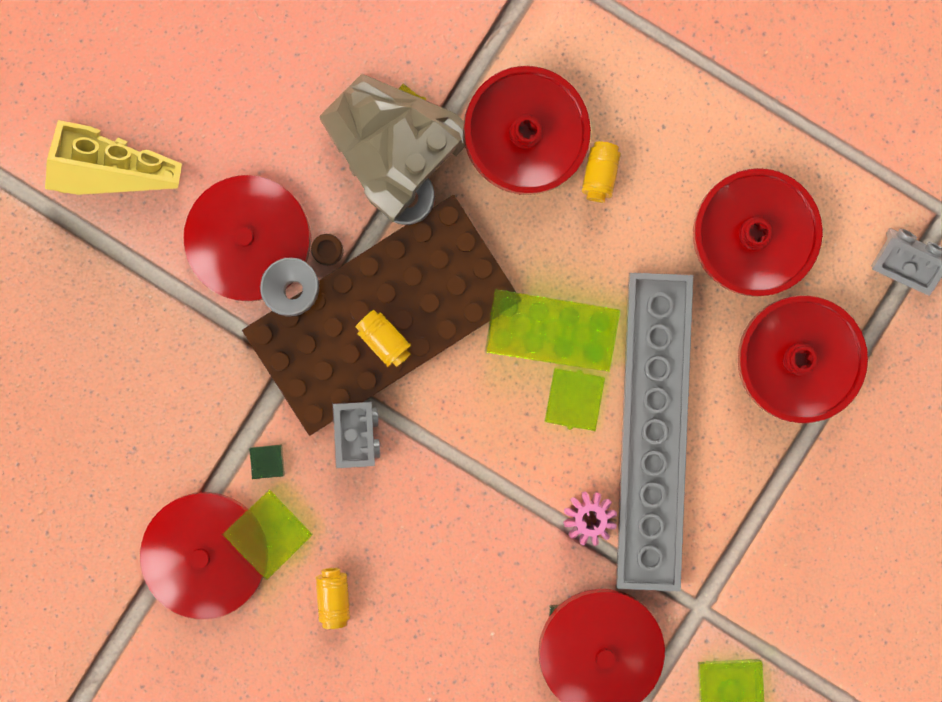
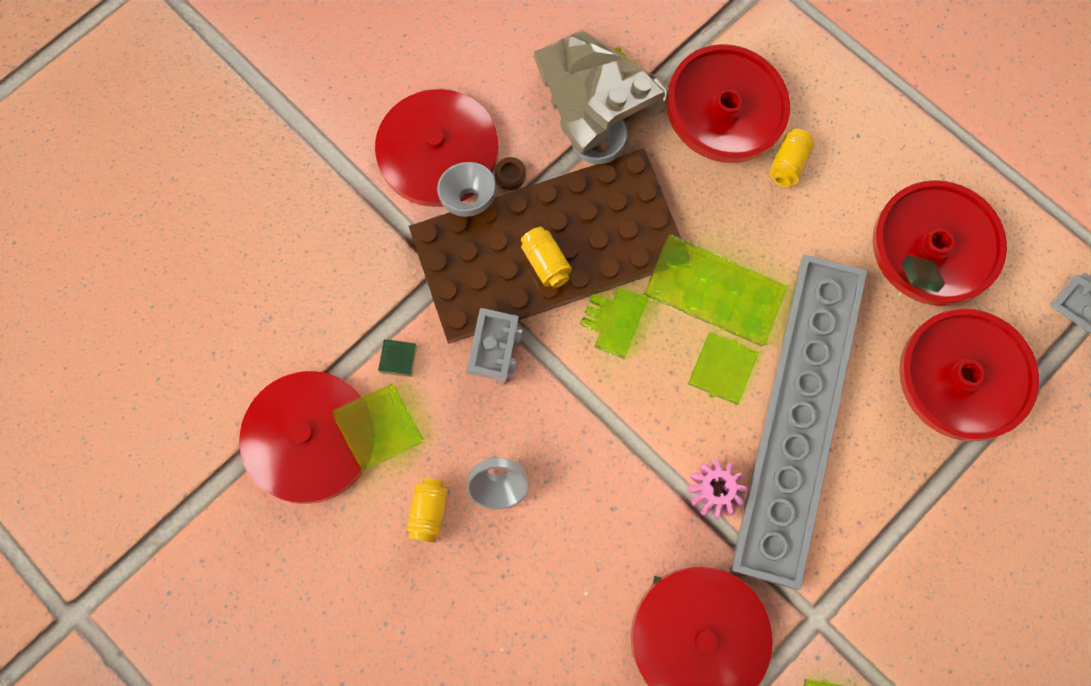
camera: 15 degrees right, 15 degrees down
(92, 164) = (305, 47): light yellow wedge -> none
(389, 560) = (497, 490): none -> light grey piece
(464, 377) = (615, 320): none -> clear neon green hinge
(745, 271) = (923, 273): none -> tile

